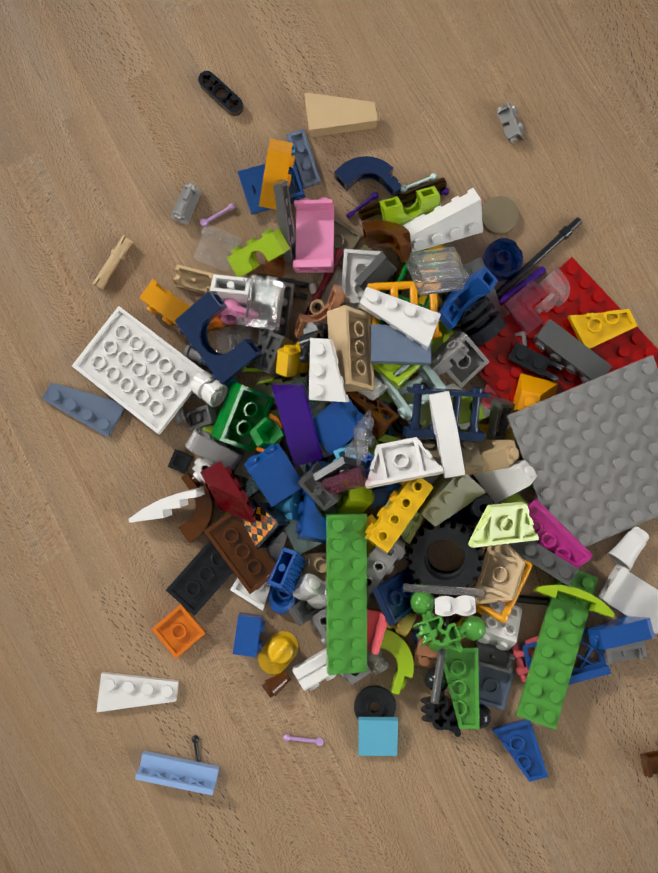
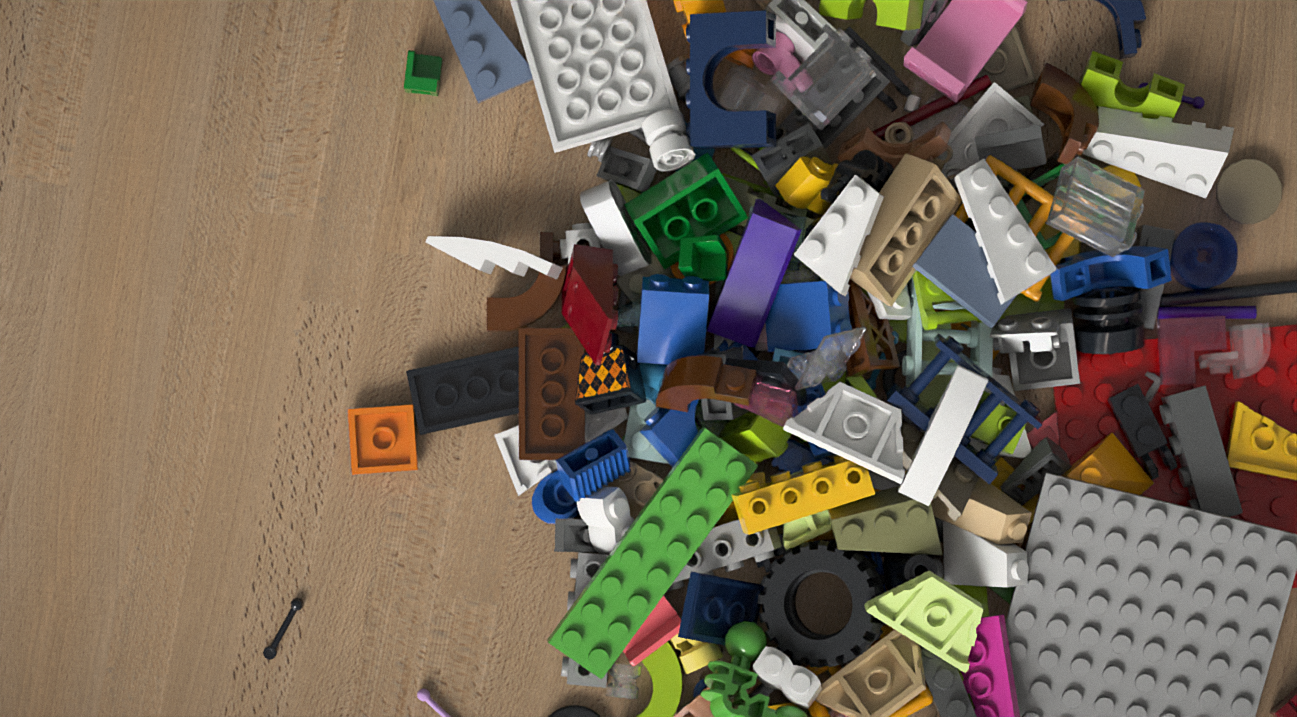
camera: 40 degrees right, 0 degrees up
(71, 443) = (422, 74): none -> green panel
(130, 691) = (257, 474): white wing -> none
(176, 772) = (243, 630): light blue fence -> none
(180, 461) = (553, 209): black tile -> none
(248, 634) = (475, 514): blue brick -> none
(275, 267) = (880, 38): clear orange slope -> none
(276, 683) = (462, 609): reddish brown cone -> none
(278, 652) = (495, 570): yellow piece -> none
(311, 491) = (704, 378): none -> reddish brown arch
(312, 671) = (527, 630): white brick -> none
(374, 195) = (1094, 36): dark purple hinge -> none
(404, 188) = (1143, 56): light aqua hinge -> none
(404, 197) = (1130, 68): dark brown axle -> none
(443, 590) = (786, 643): clear bar -> none

